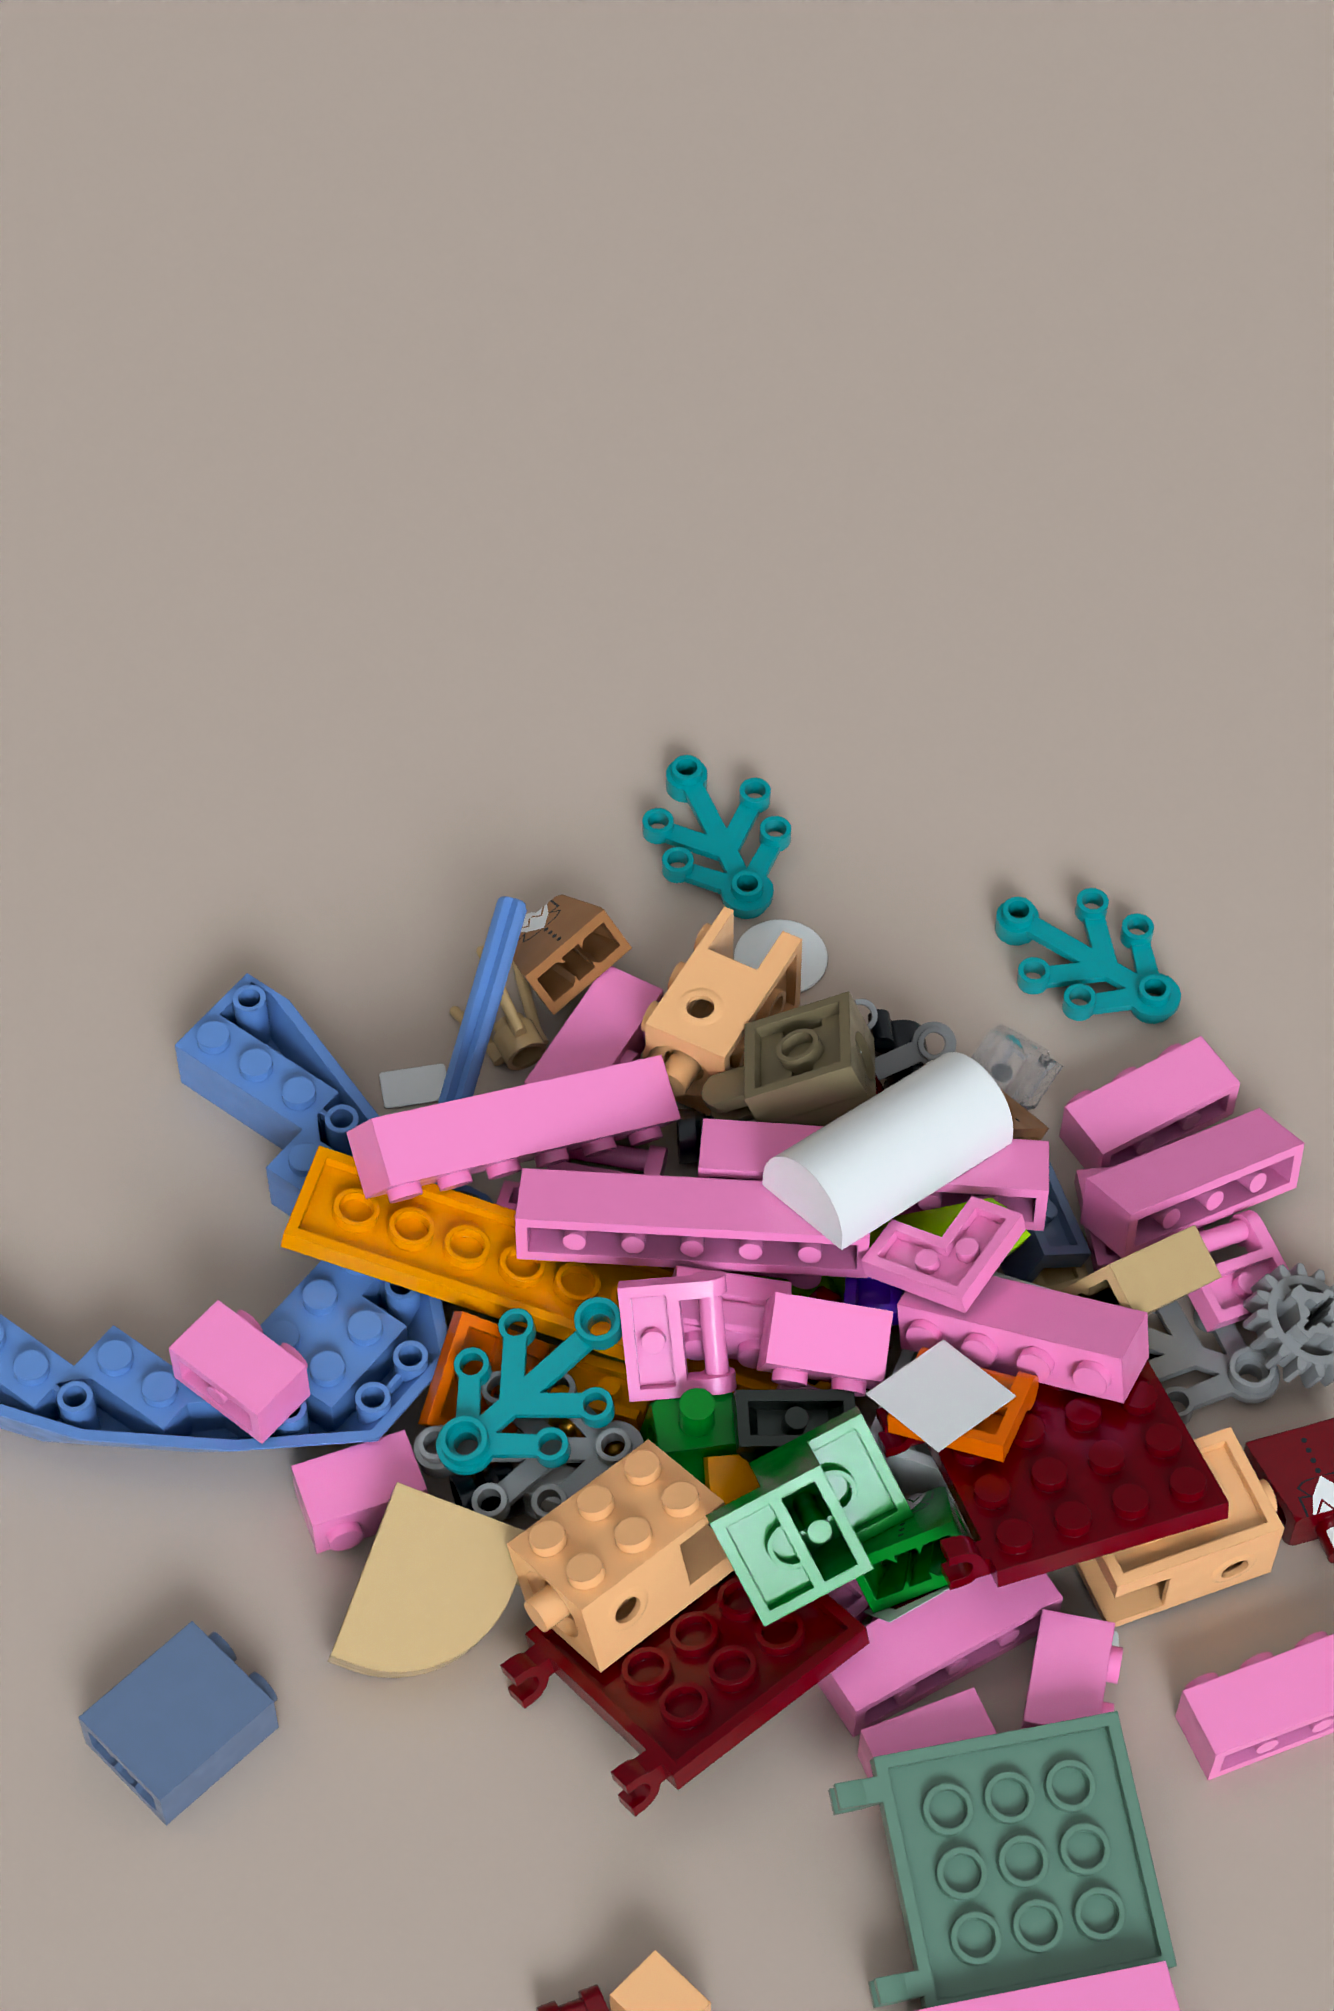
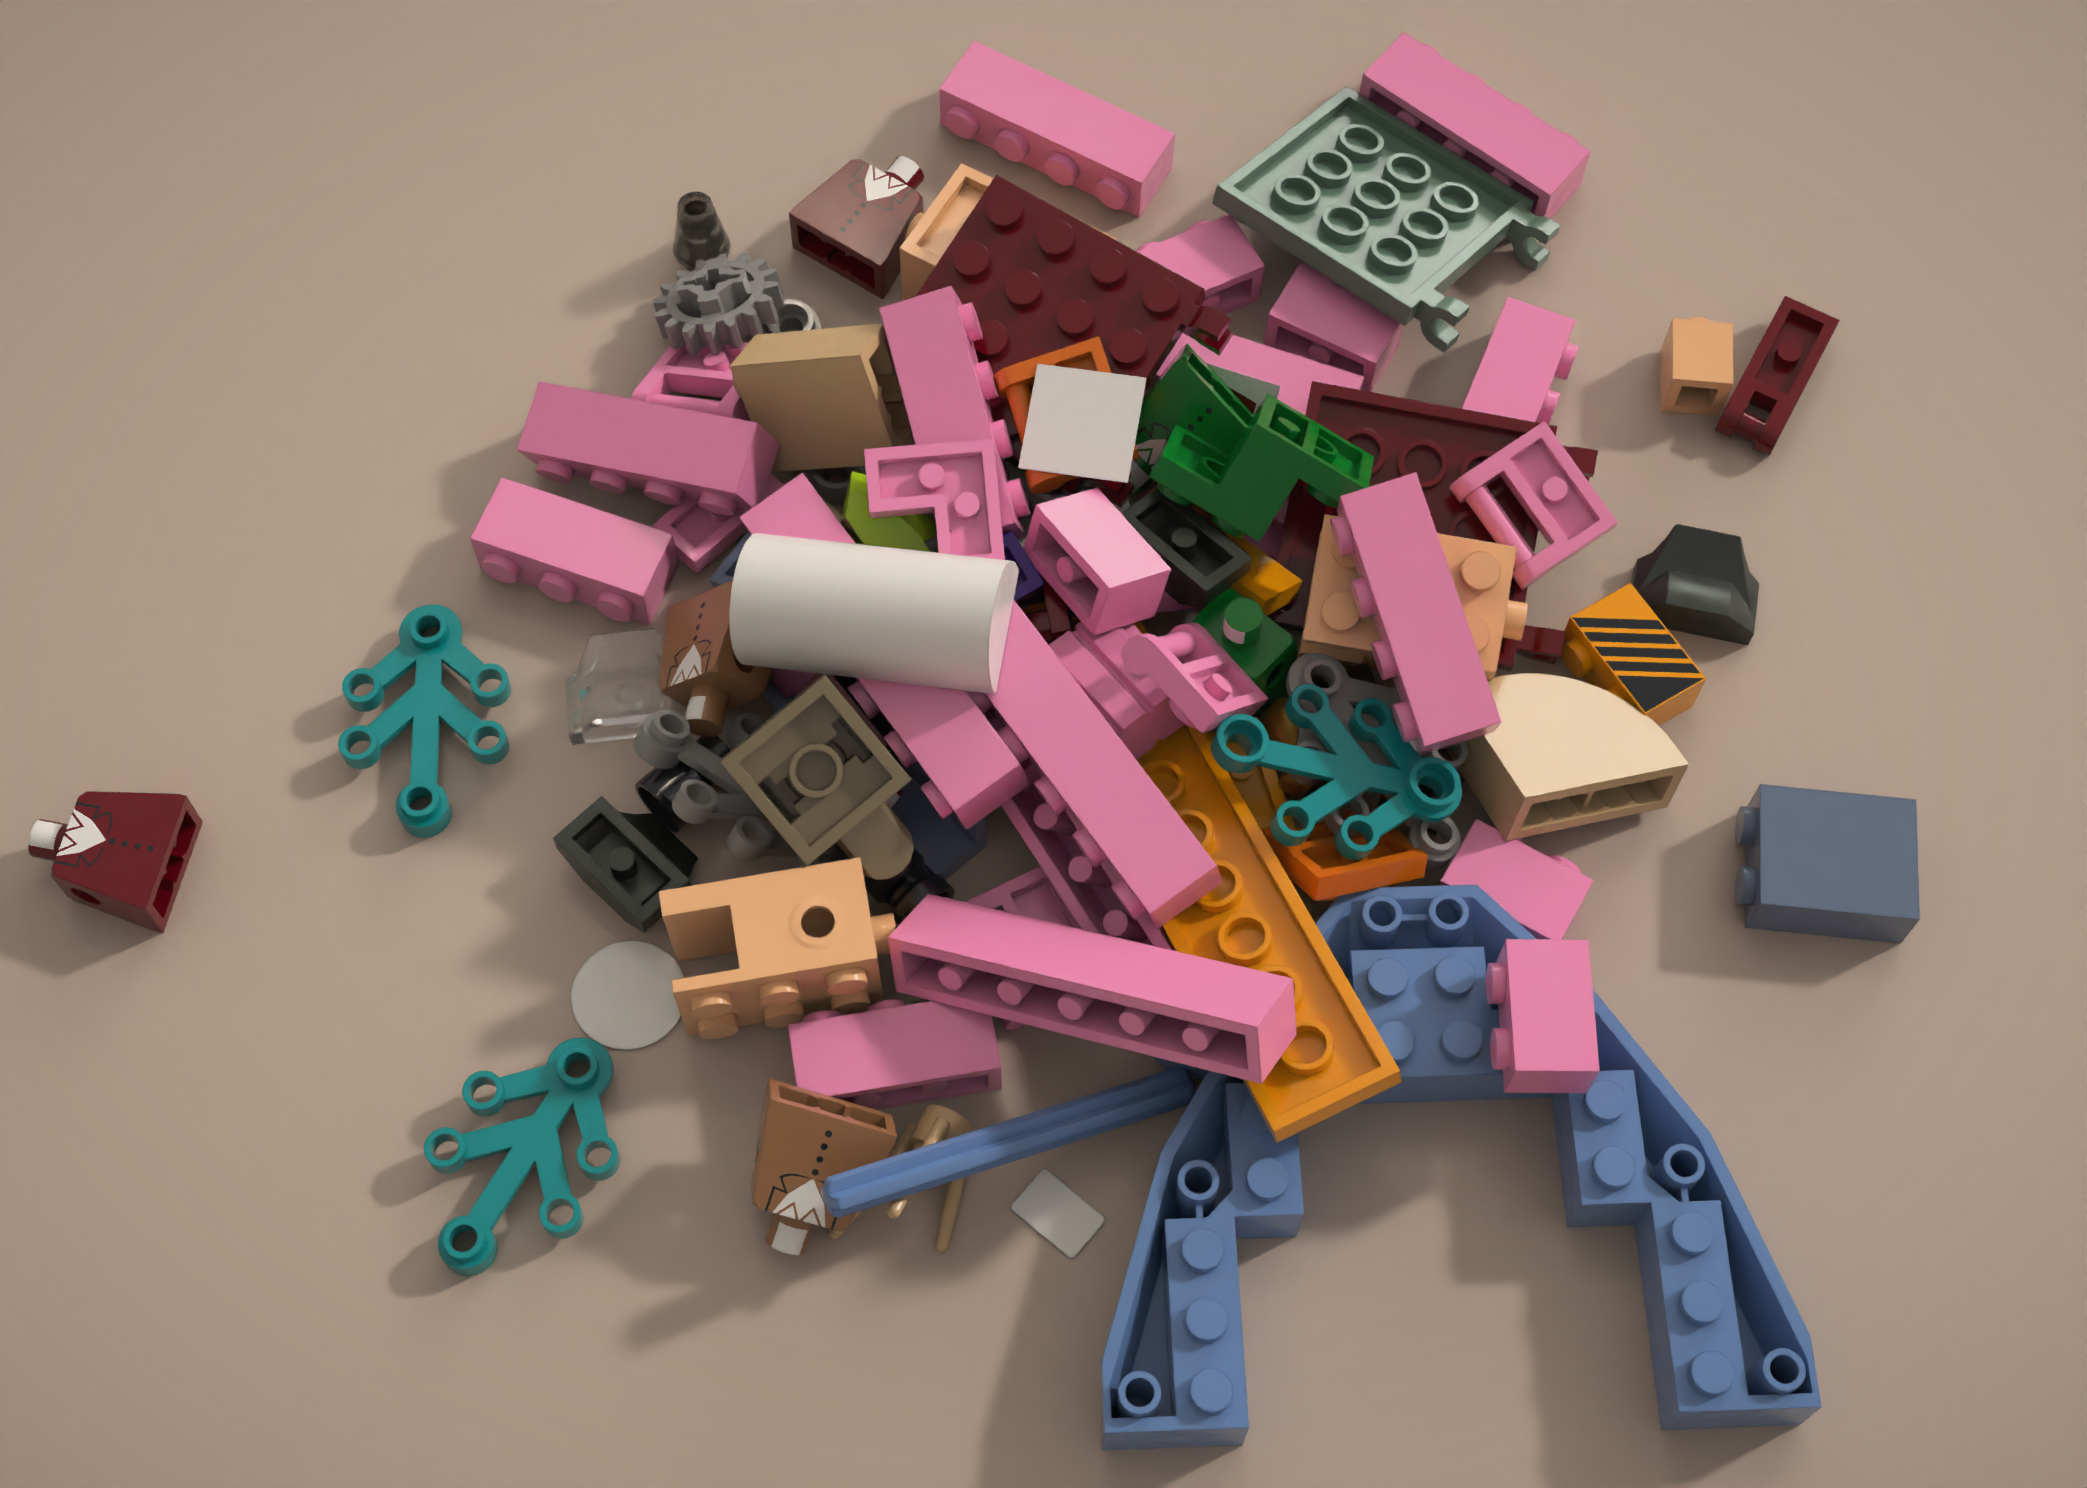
camera: 130 degrees left, 10 degrees up
(454, 1723) = (1632, 655): none -> brick
(469, 1833) = (1700, 584): none -> pearl dark grey slope
(584, 1484) = (1416, 615): none -> bright pink brick
(621, 1717) = (1550, 493): none -> bright pink plate
(761, 1843) = (1522, 363): none -> bright pink brick
(887, 982) = (626, 860): none -> pearl dark grey slope
(1113, 744) = (122, 852): none -> dark red torso

